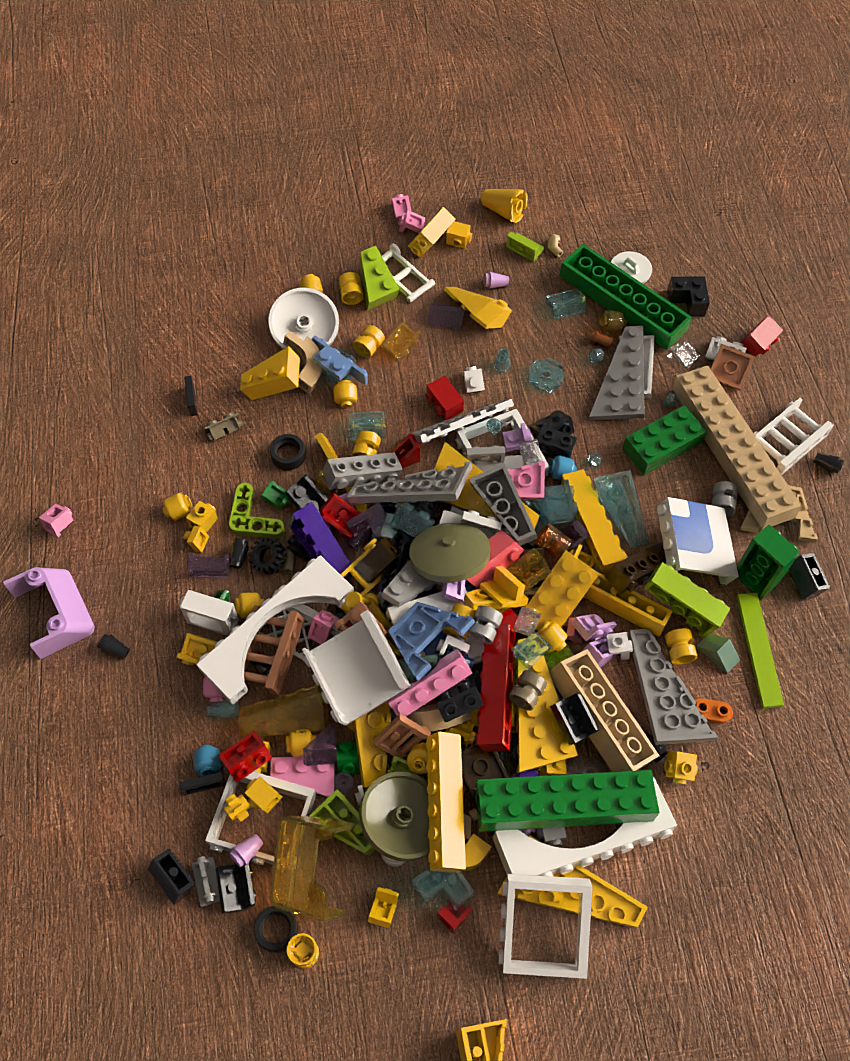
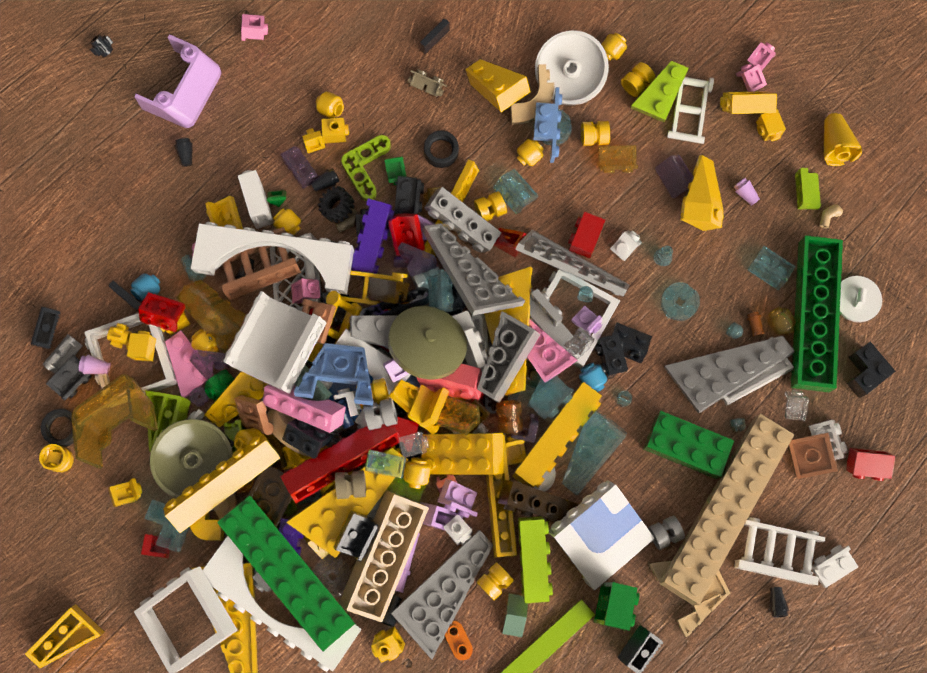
camera: 50 degrees right, 15 degrees up
(823, 408) = (834, 566): none -> white bracket

